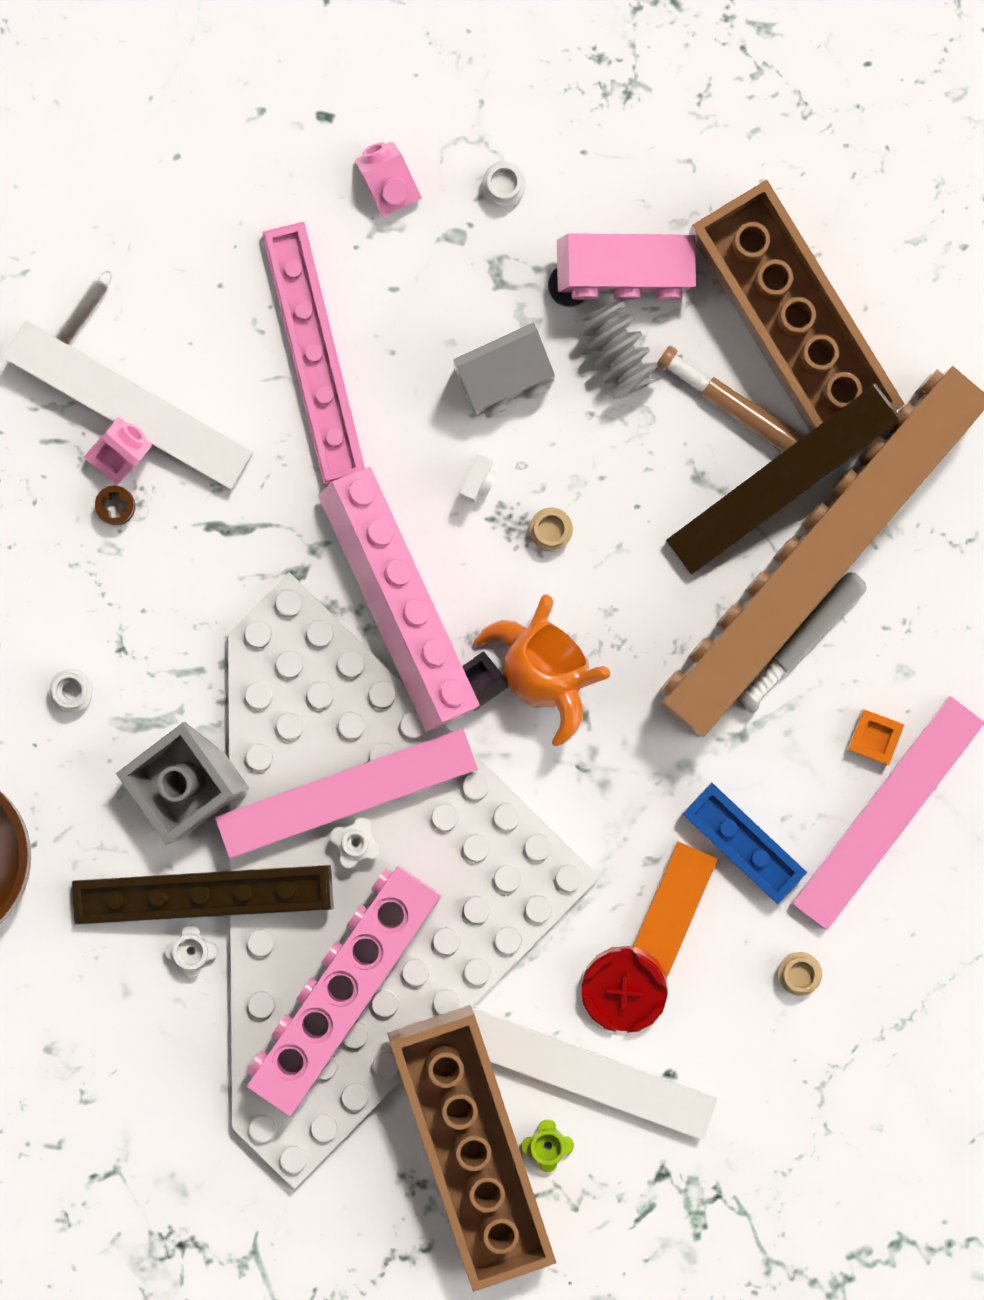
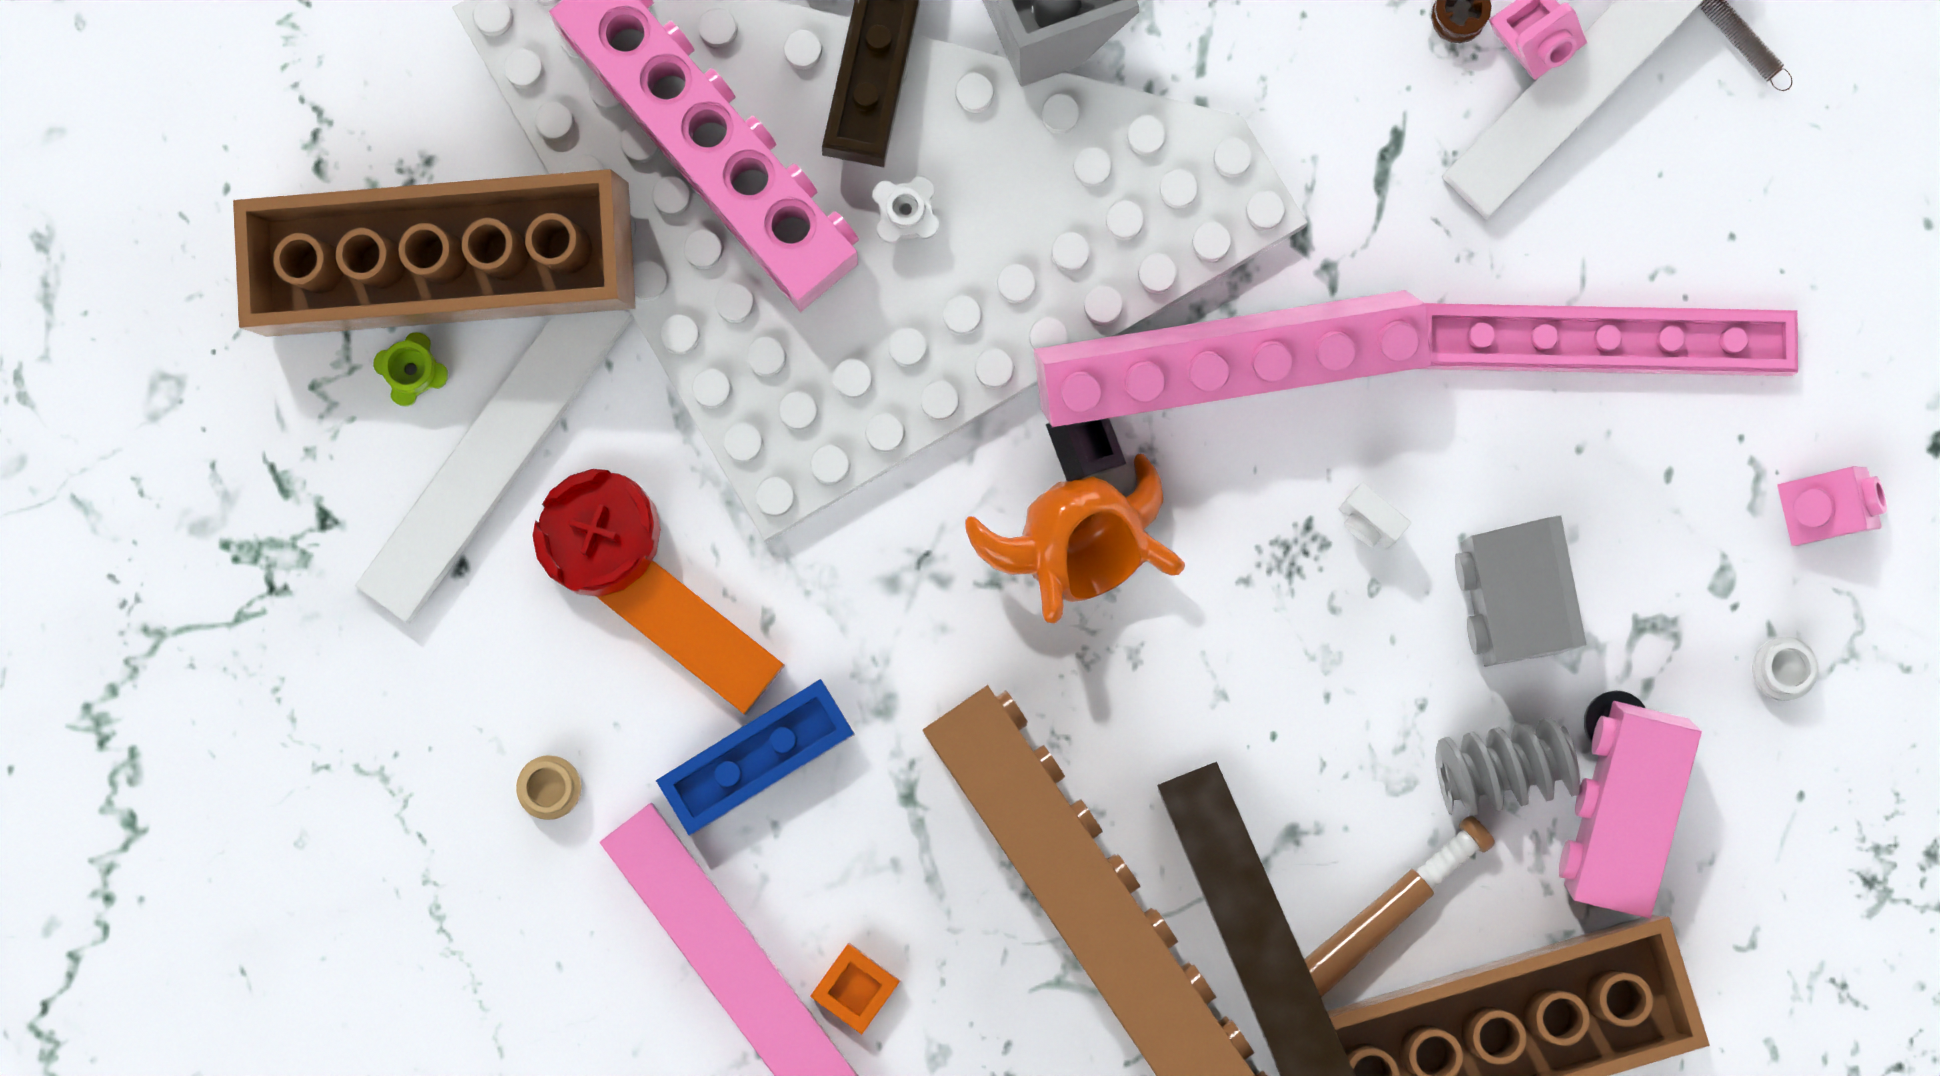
camera: 110 degrees right, 5 degrees down
(346, 793) = (978, 216): bright pink tile -> none
(551, 529) = (1273, 603): tan plate -> none
(816, 625) = (1033, 939): light grey piece -> none

